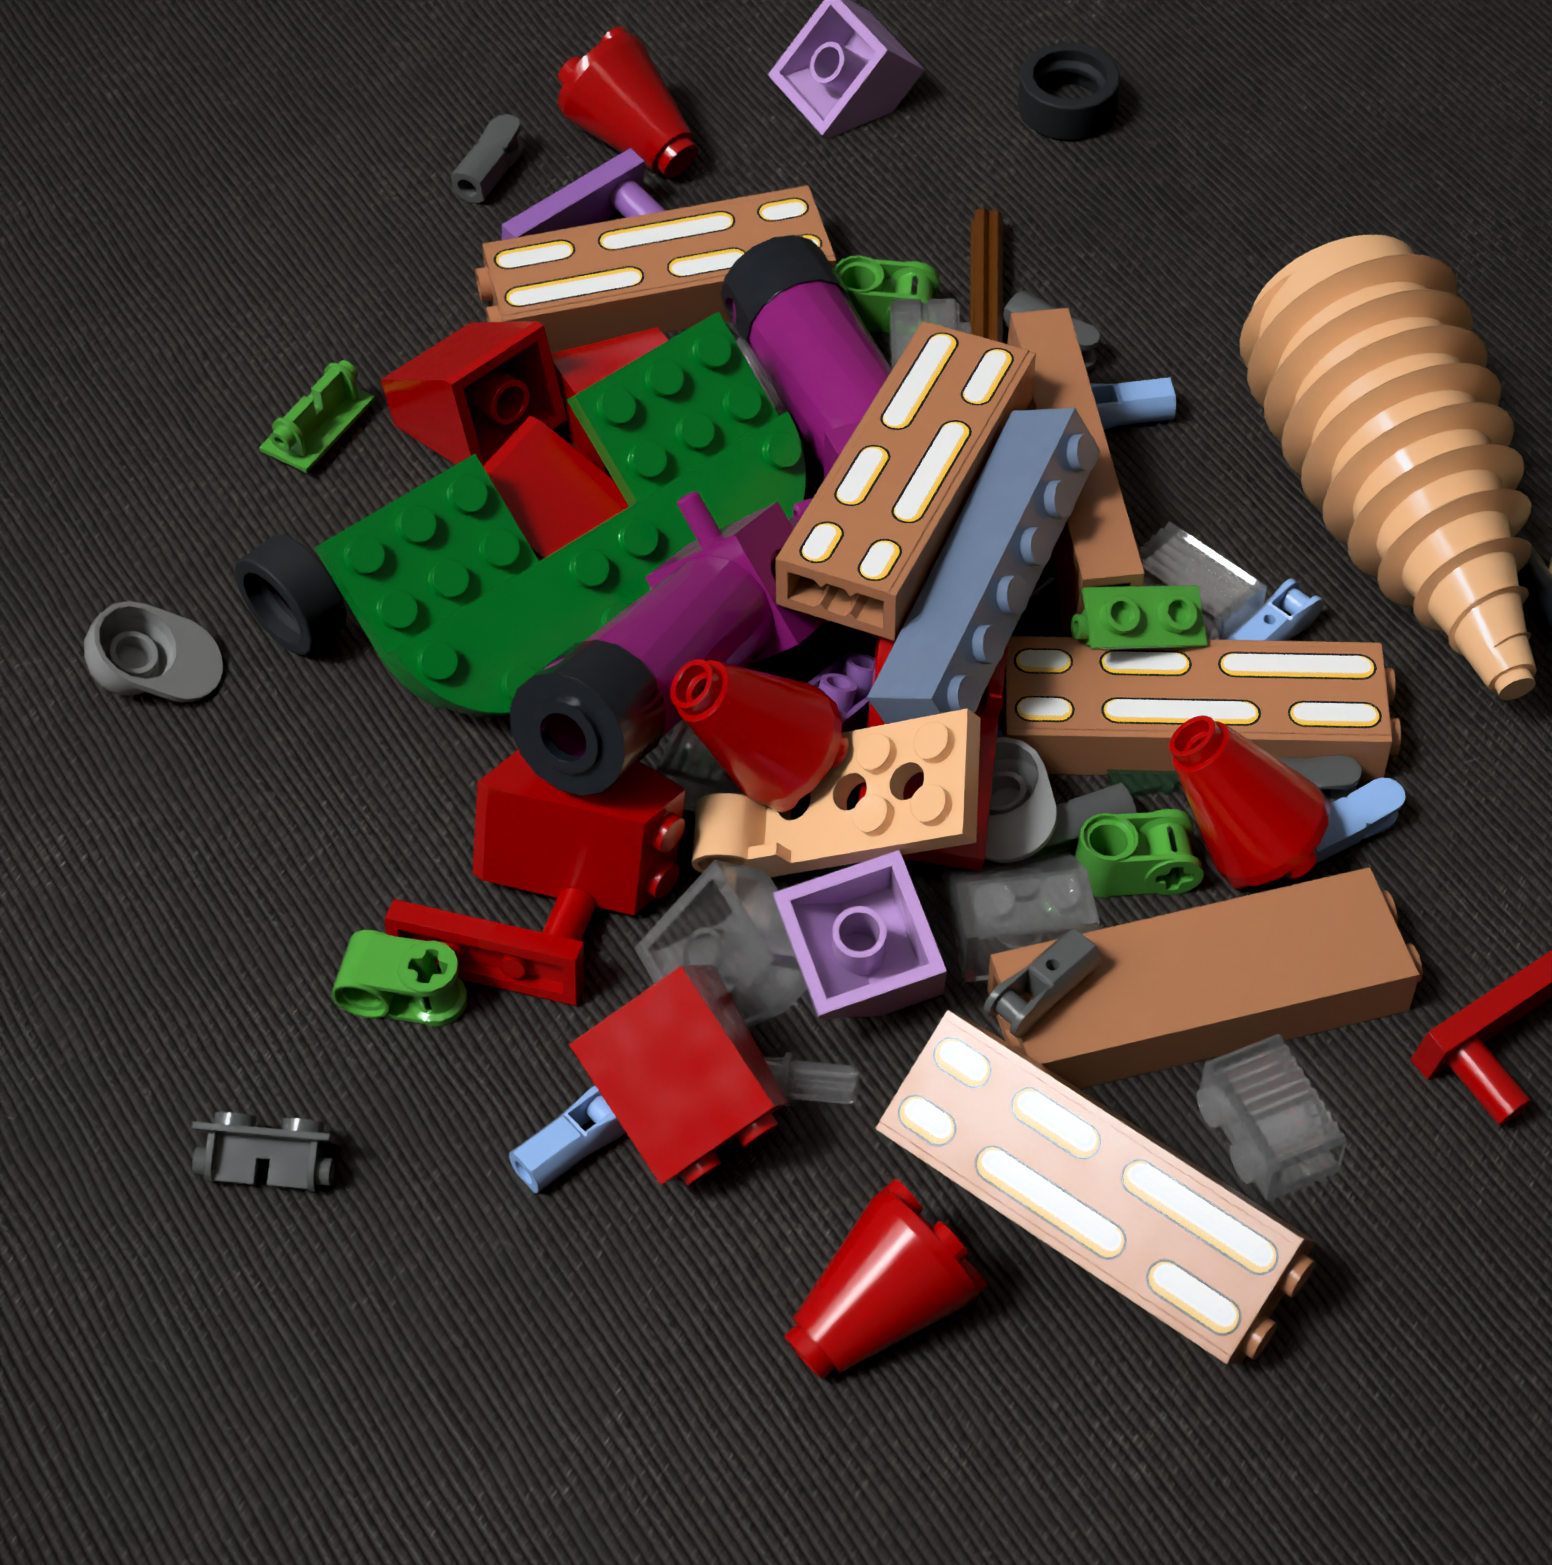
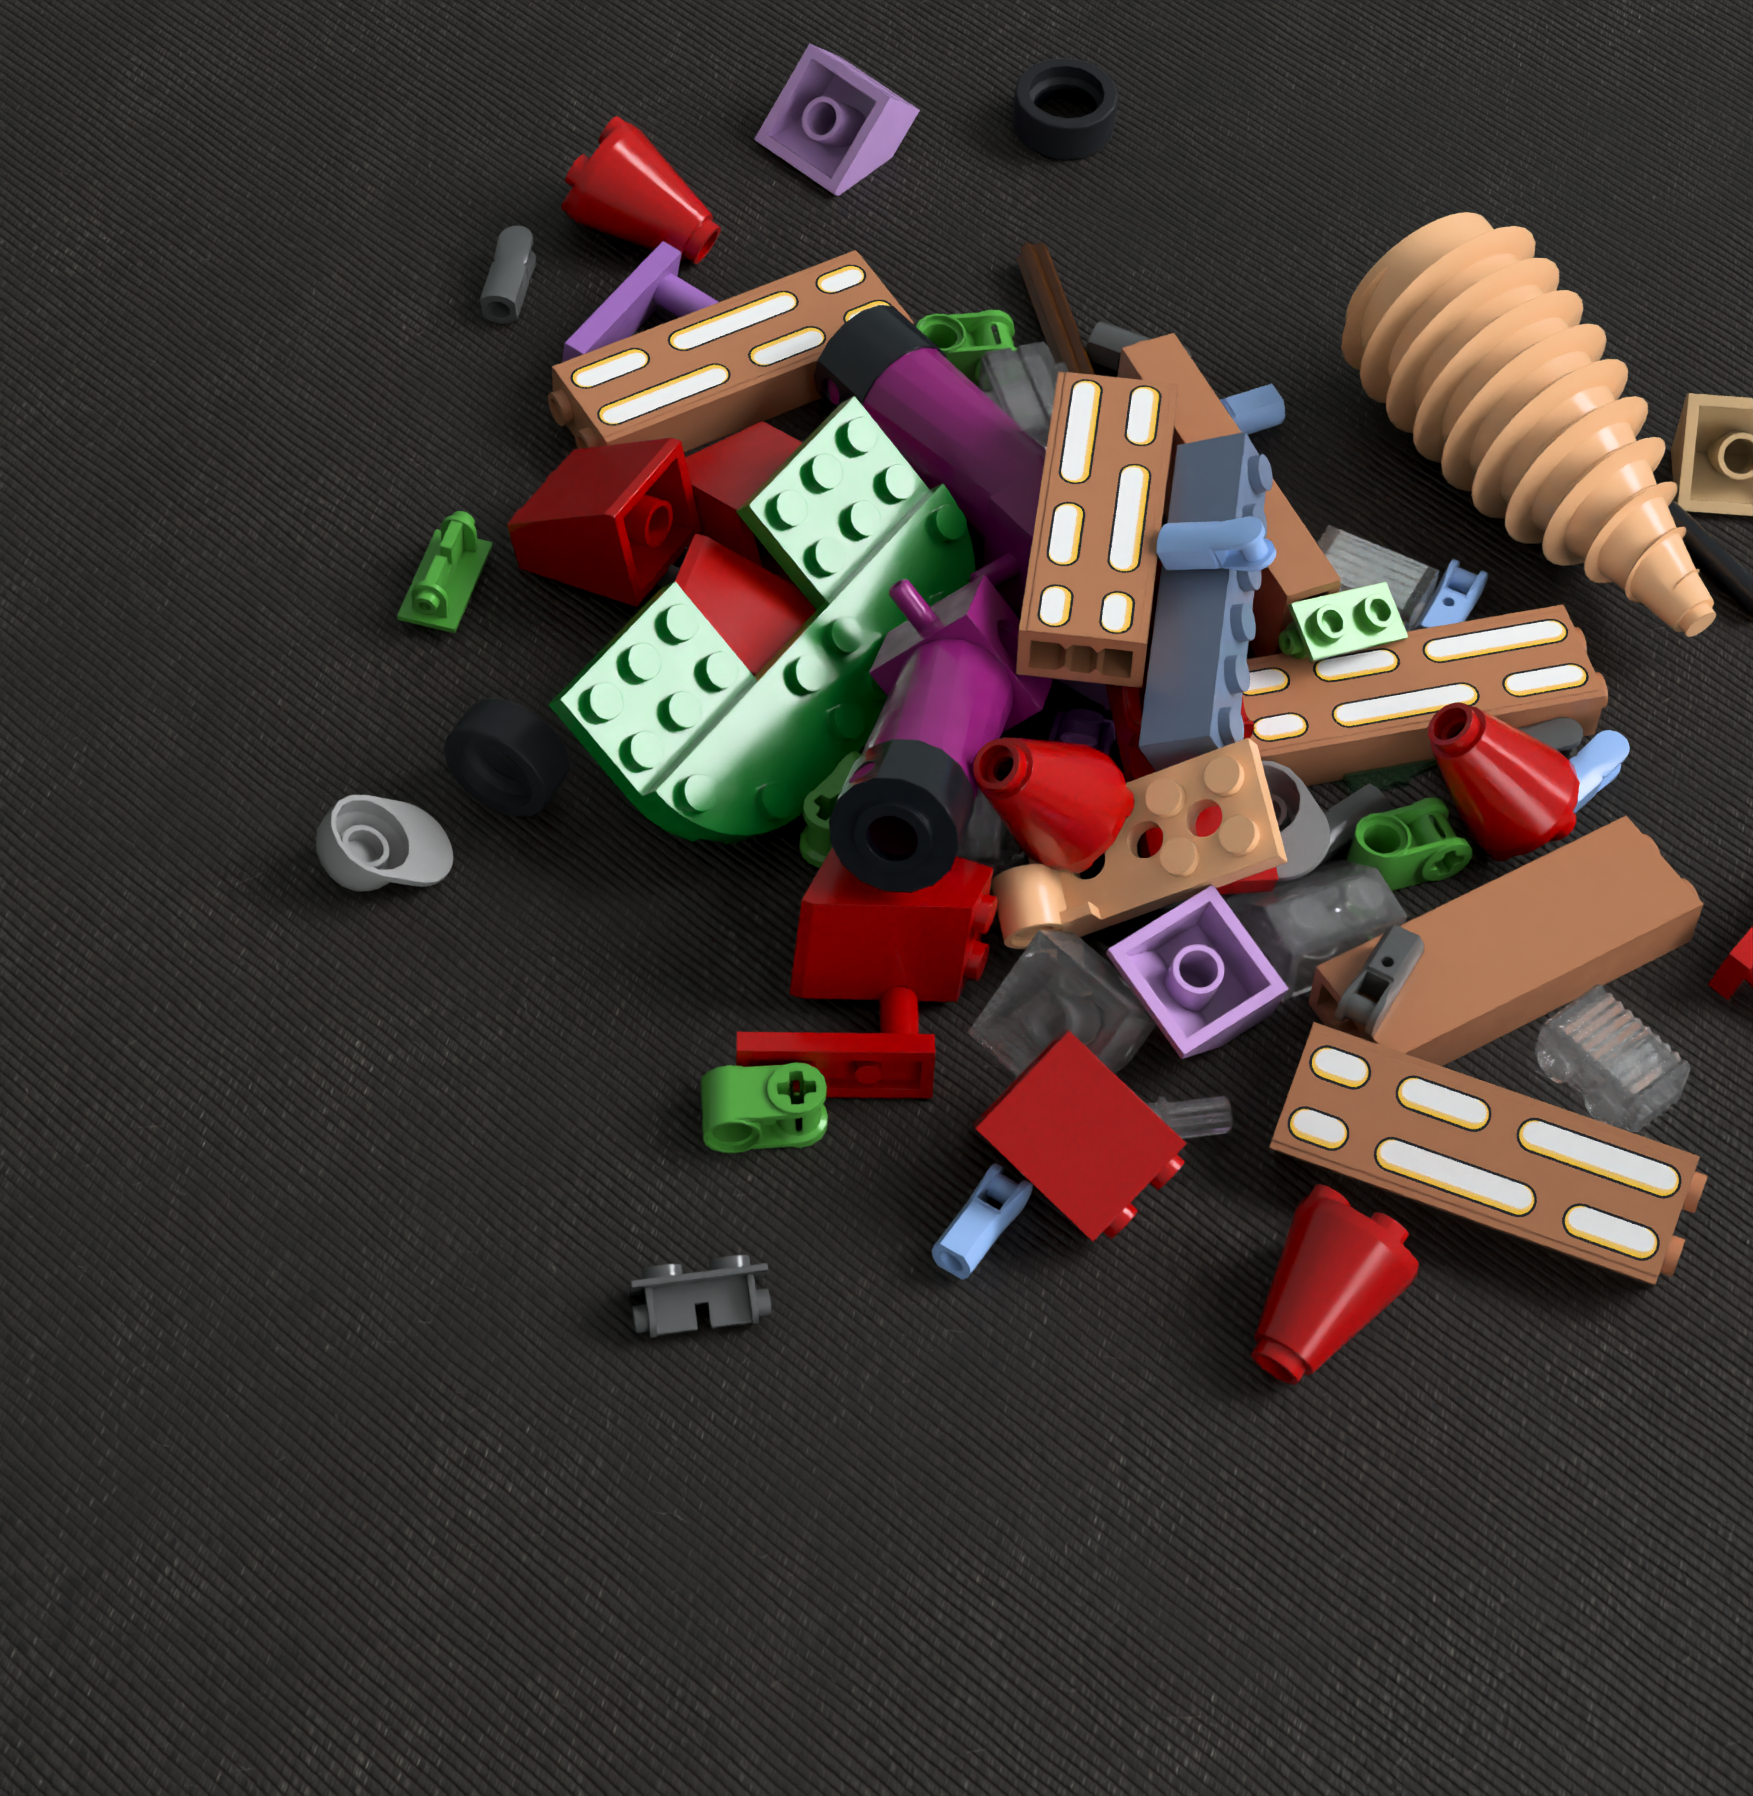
camera: 20 degrees left, 0 degrees up
(1000, 512) = (1215, 545): none -> light blue bar

